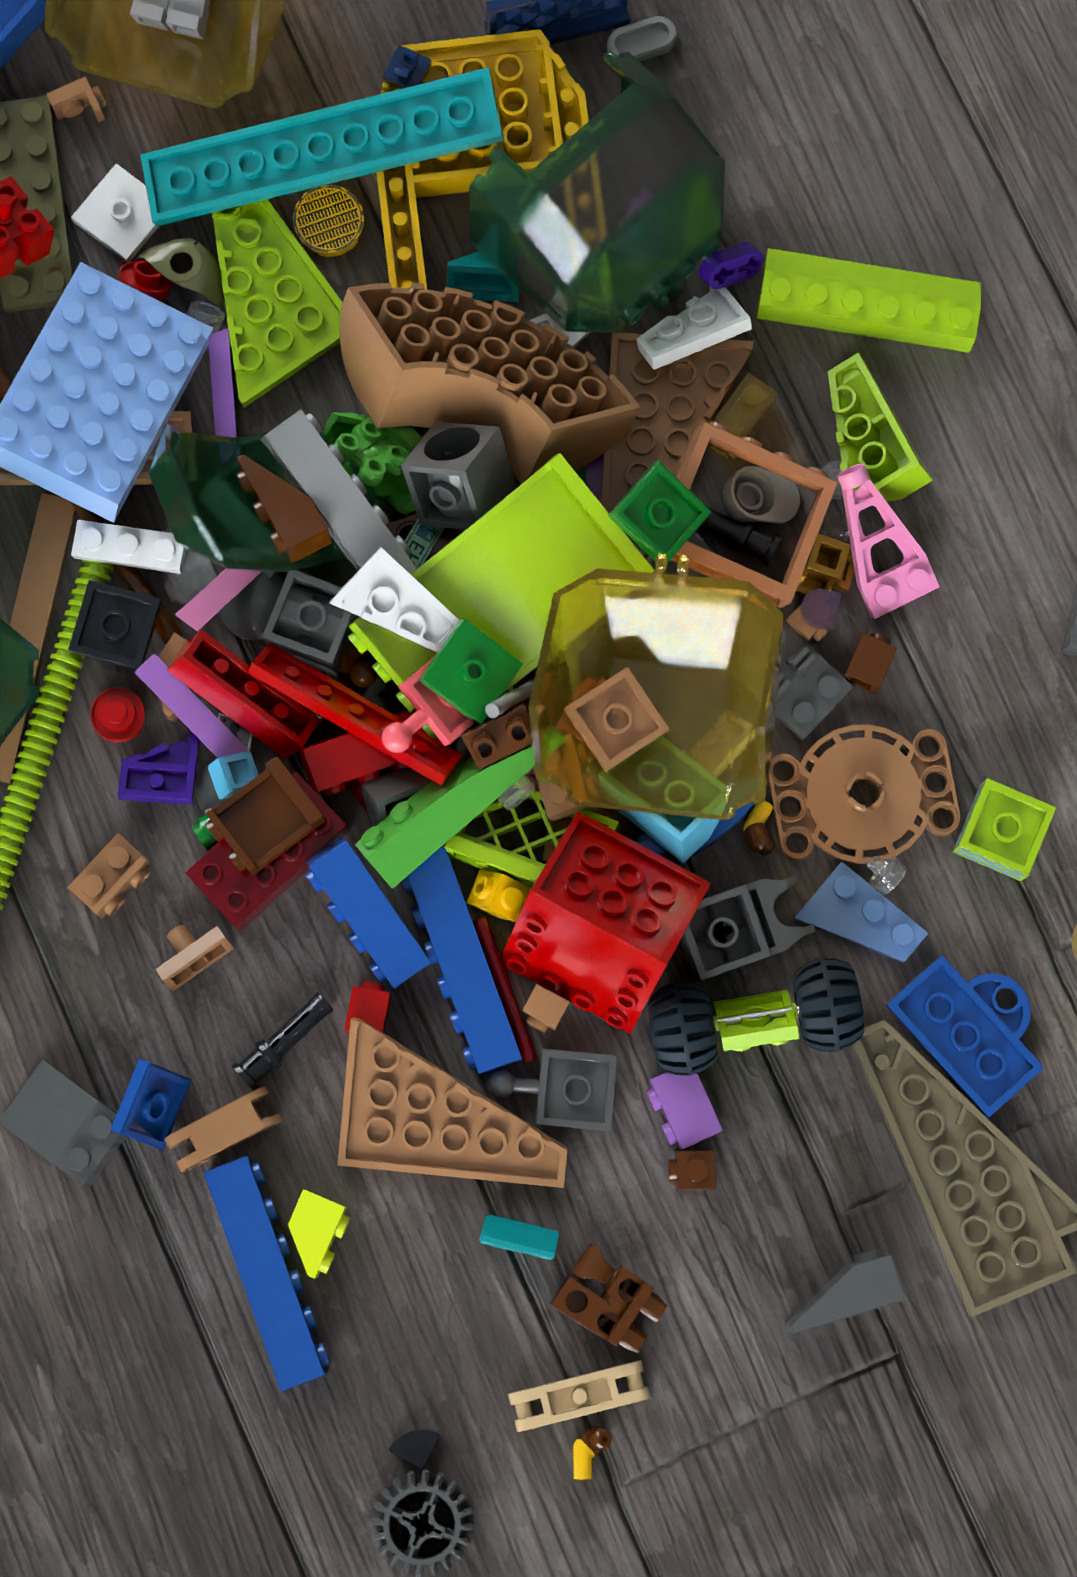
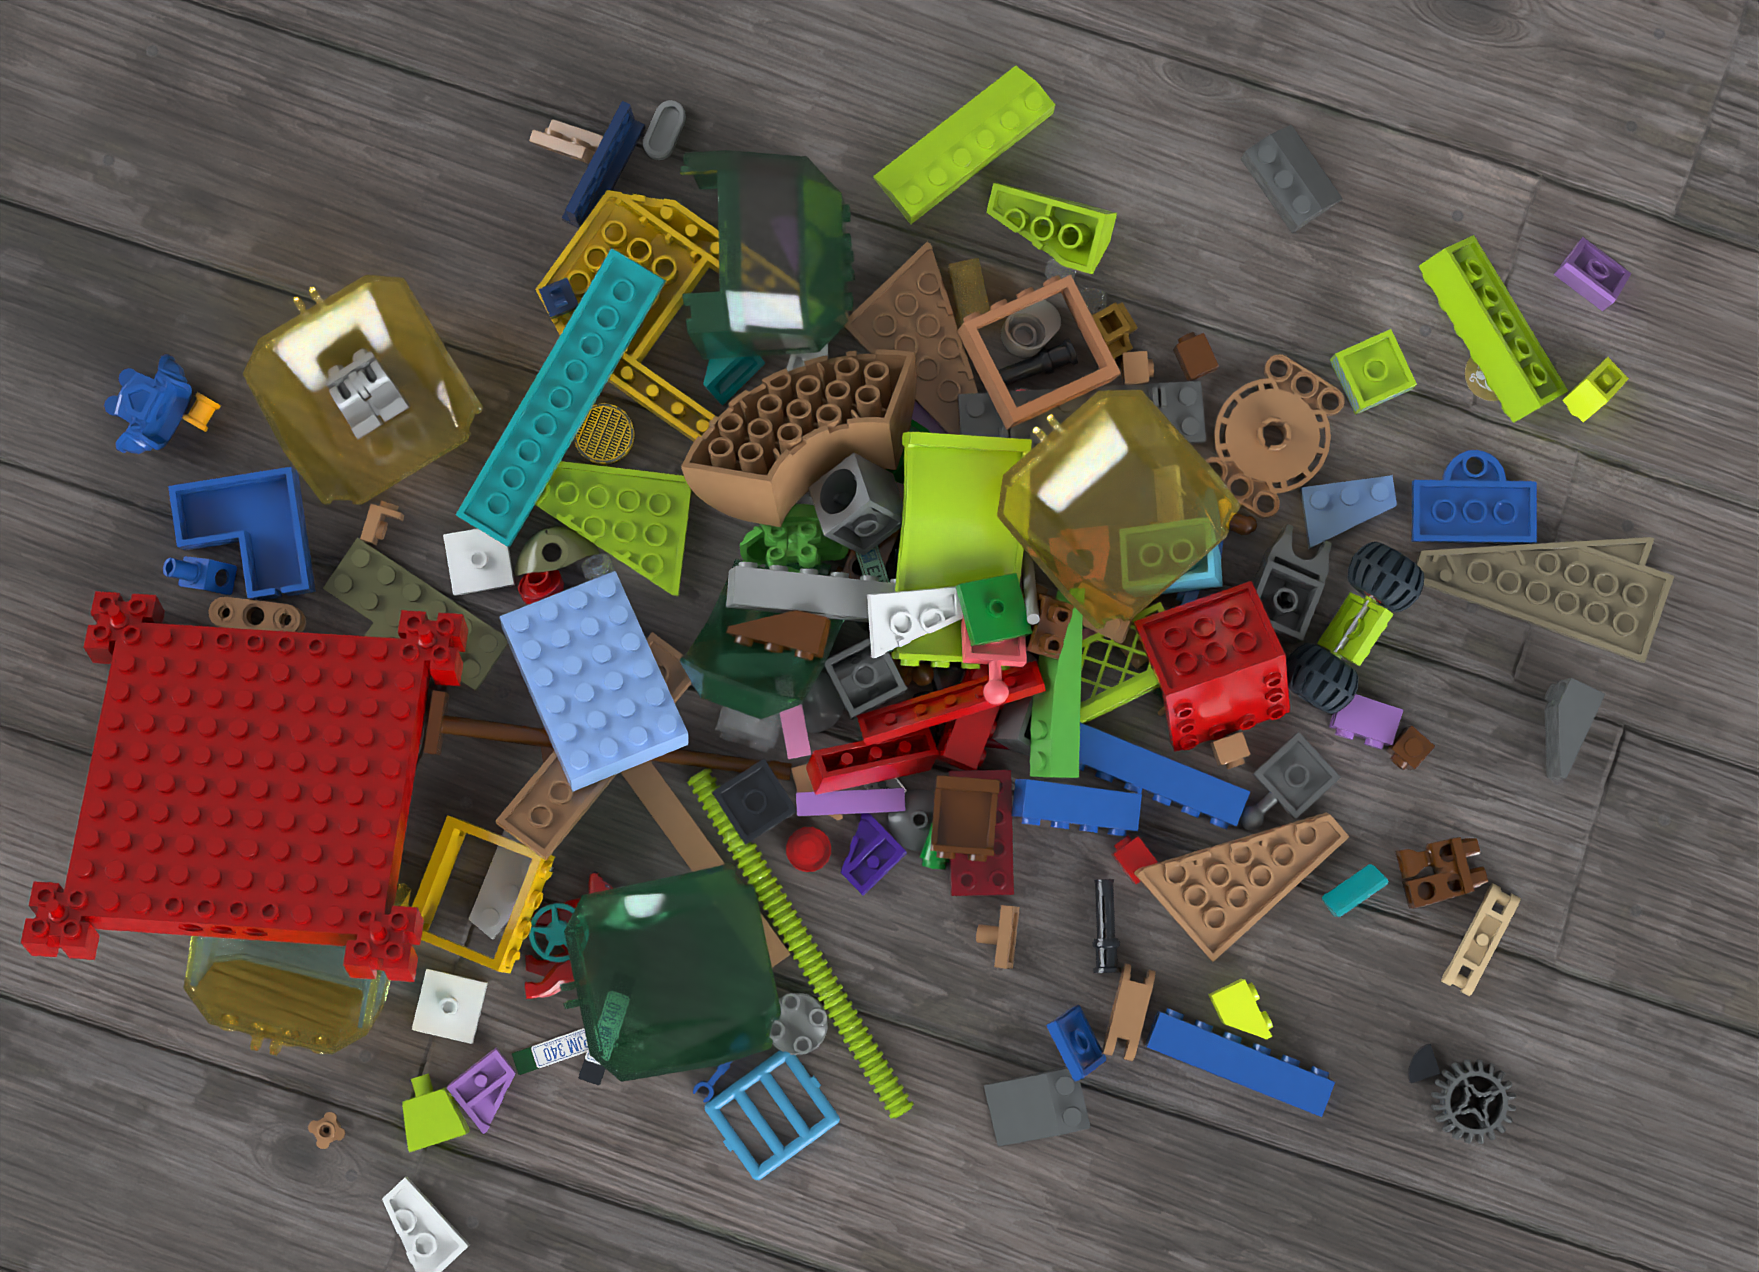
camera: 50 degrees left, 5 degrees up
(111, 876) = (906, 943): medium nougat bracket -> none
(128, 547) = (711, 748): white plate -> none
(222, 384) = (658, 601): medium lavender sticker -> none
(232, 773) = (914, 811): medium azure slope -> none
(498, 895) = (1136, 715): yellow brick -> none
(504, 989) = (1195, 763): dark red bar -> none
(517, 793) = (1088, 648): clear tile -> none
(586, 1447) = (1515, 963): arm -> none
(616, 719) = (1102, 547): medium nougat plate -> none
(659, 512) = (999, 404): green plate -> none
(699, 326) = (889, 266): white wing -> none
(731, 265) = (867, 210): dark purple beam -> none
(821, 609) = (1139, 357): clear purple tile -> none
(886, 874) = (1335, 467): clear tile -> none
(900, 583) = (1161, 292): bright pink plate -> none

